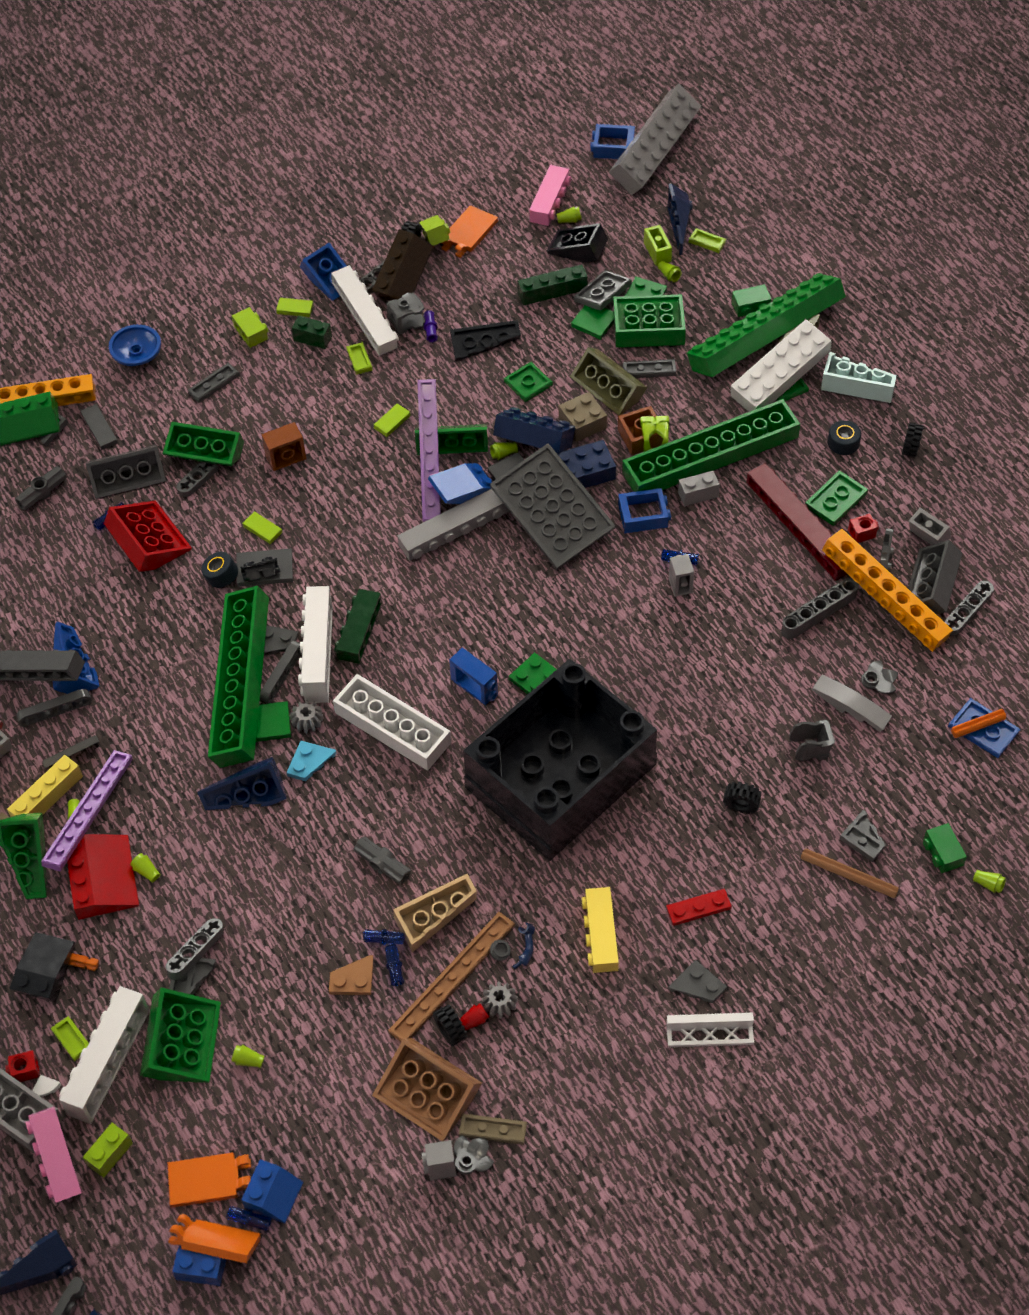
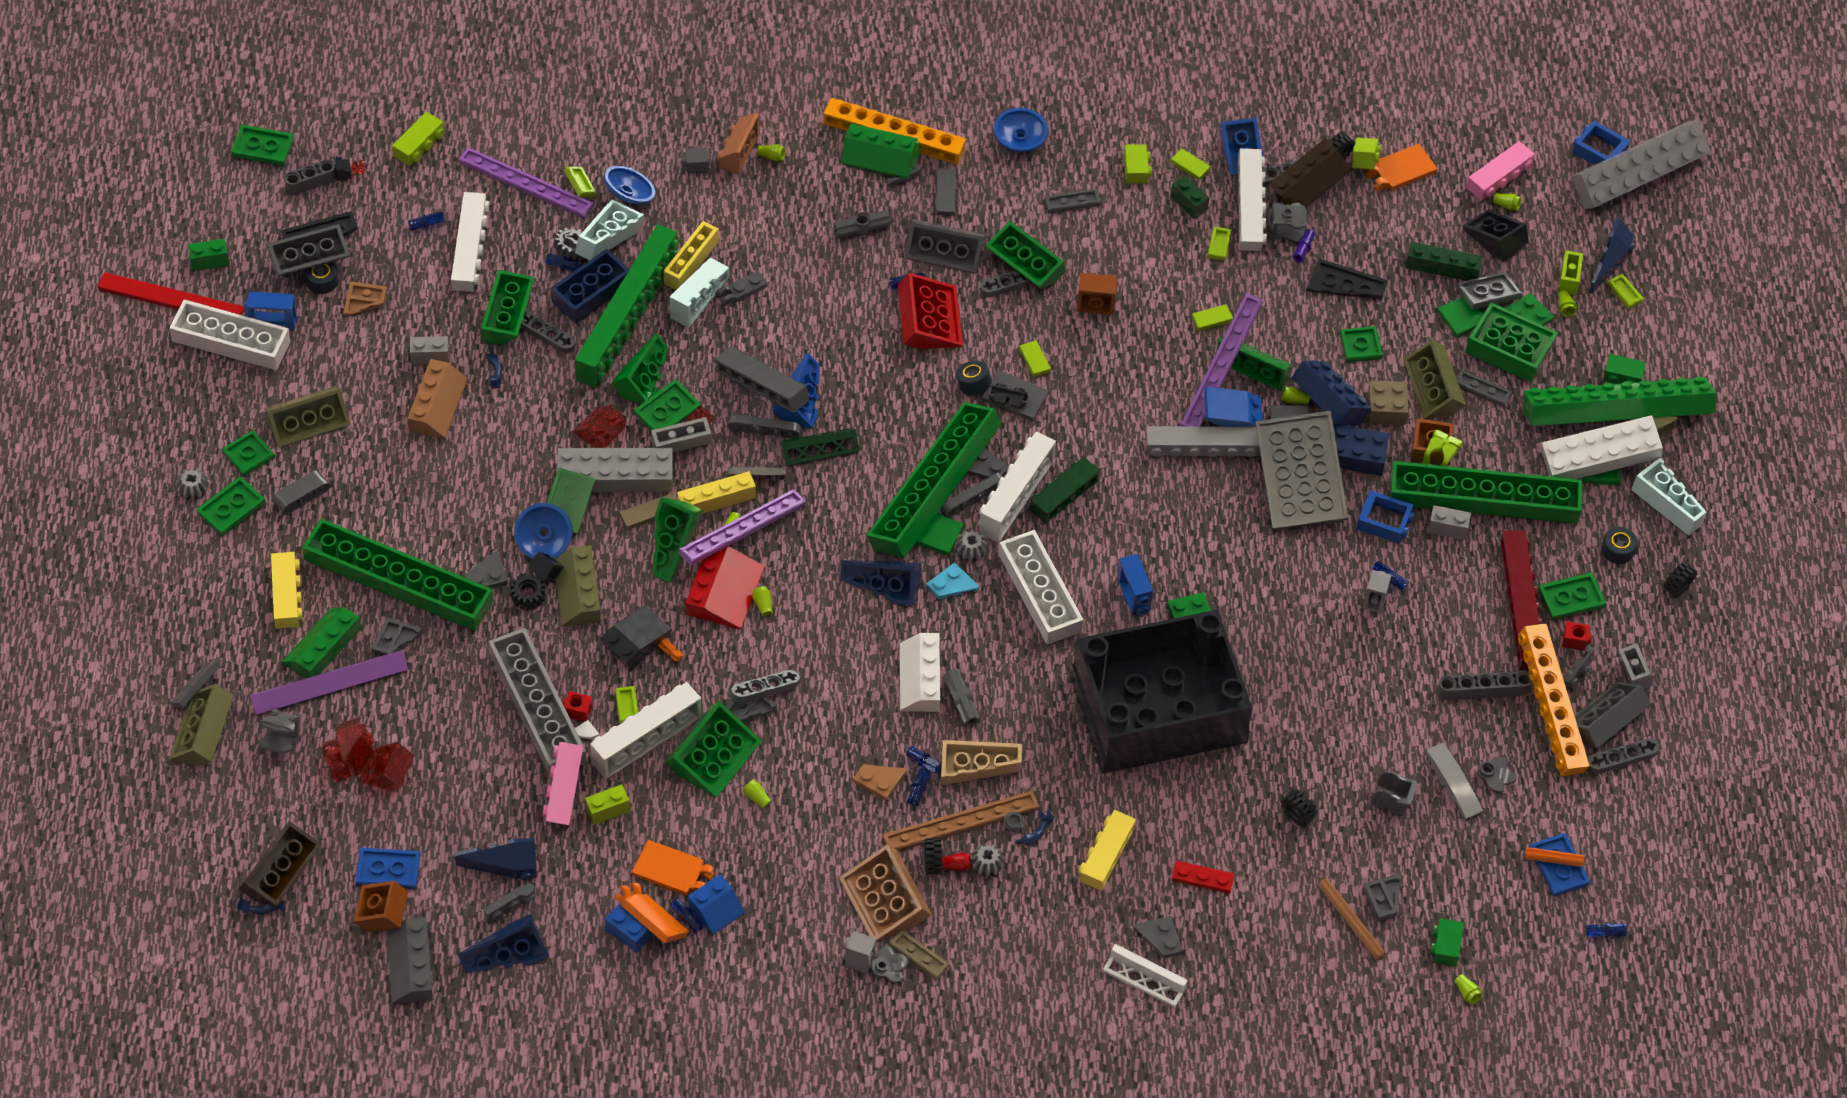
camera: 25 degrees right, 0 degrees up
(110, 693) = (818, 439): none -> dark green fence
(331, 858) = (920, 673): none -> white slope

